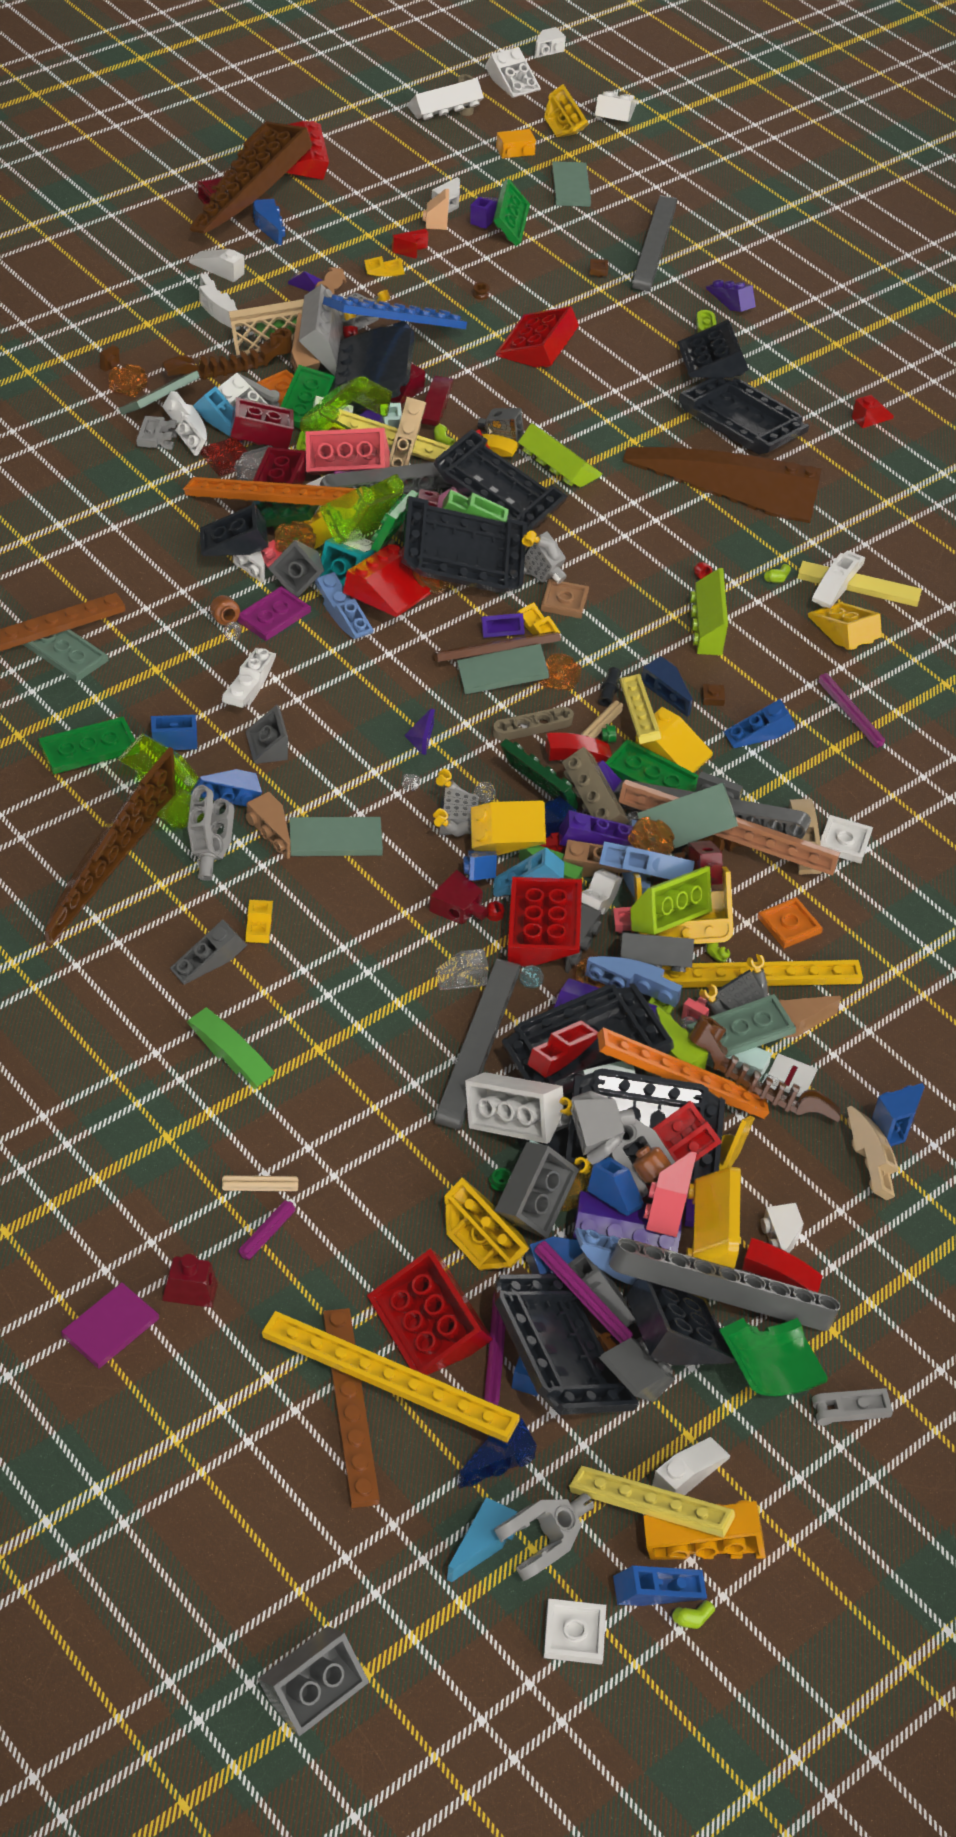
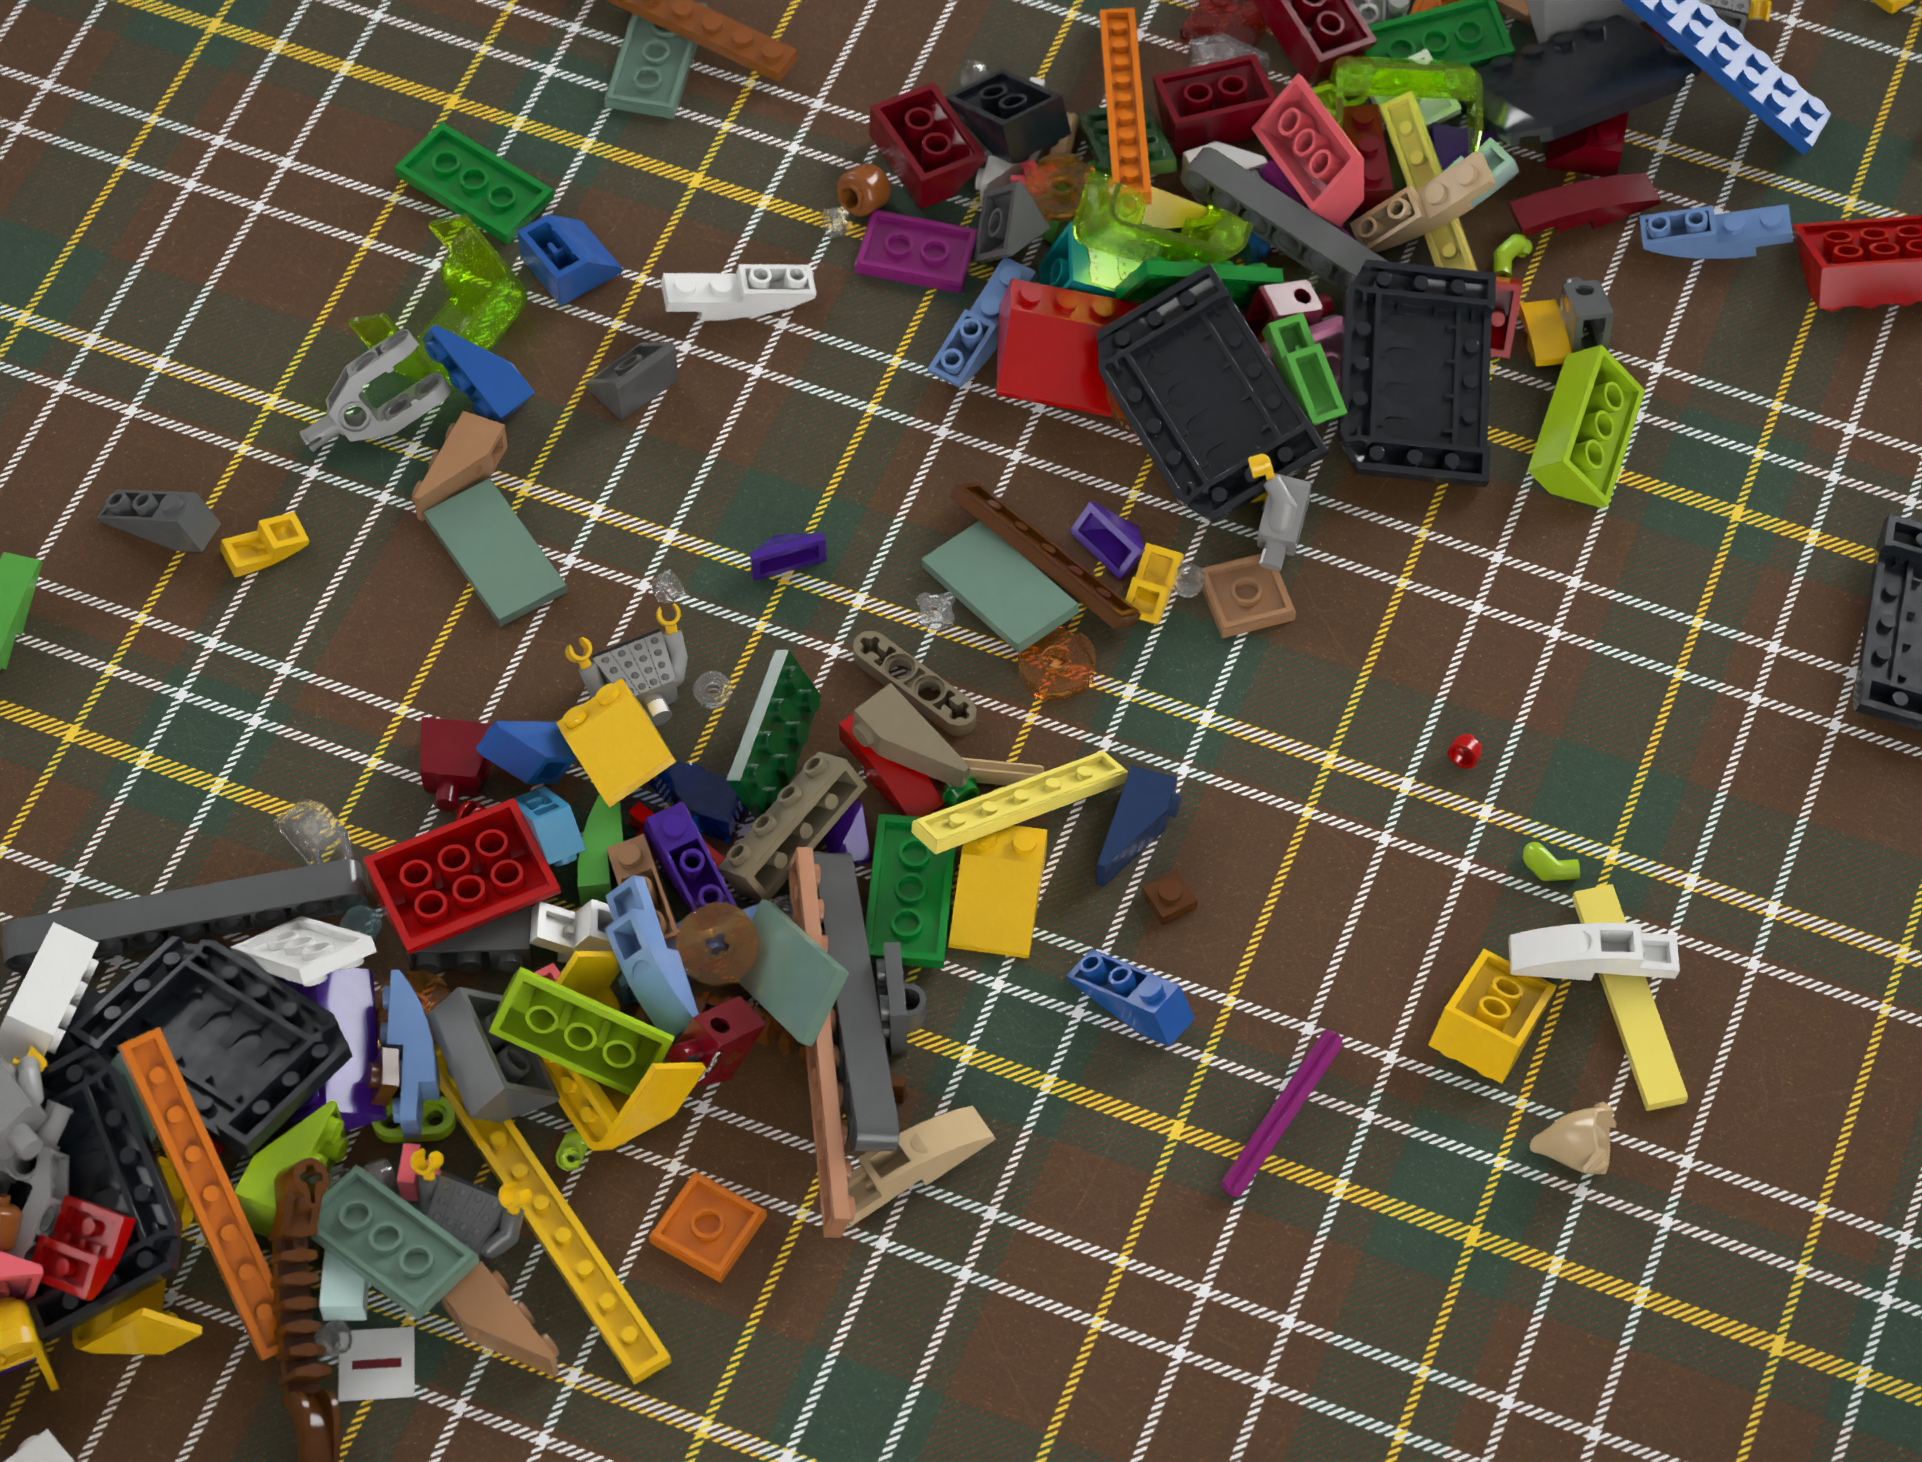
camera: 65 degrees right, 10 degrees up
(114, 843) = (286, 303): reddish brown wedge -> none
(179, 546) = (973, 71): none -> clear hinge
(218, 575) = (925, 144): none -> dark red slope
(487, 371) = (1708, 235): none -> medium blue slope
(497, 698) = (936, 619): none -> clear plate
(547, 609) = (1188, 580): none -> clear hinge
(554, 985) = (306, 950): none -> white plate
(562, 1048) = (179, 1012): red slope -> none
(577, 726) = (905, 737): none -> dark tan slope
(609, 687) = (1072, 745): black pin -> none
(648, 988) = (383, 1076): none -> reddish brown plate
(710, 613) = (1345, 807): lime slope -> none
(763, 483) = (1762, 734): reddish brown wedge -> none
(846, 837) = (949, 1228): white plate -> none
(927, 625) = (1579, 1139): none -> tan hat

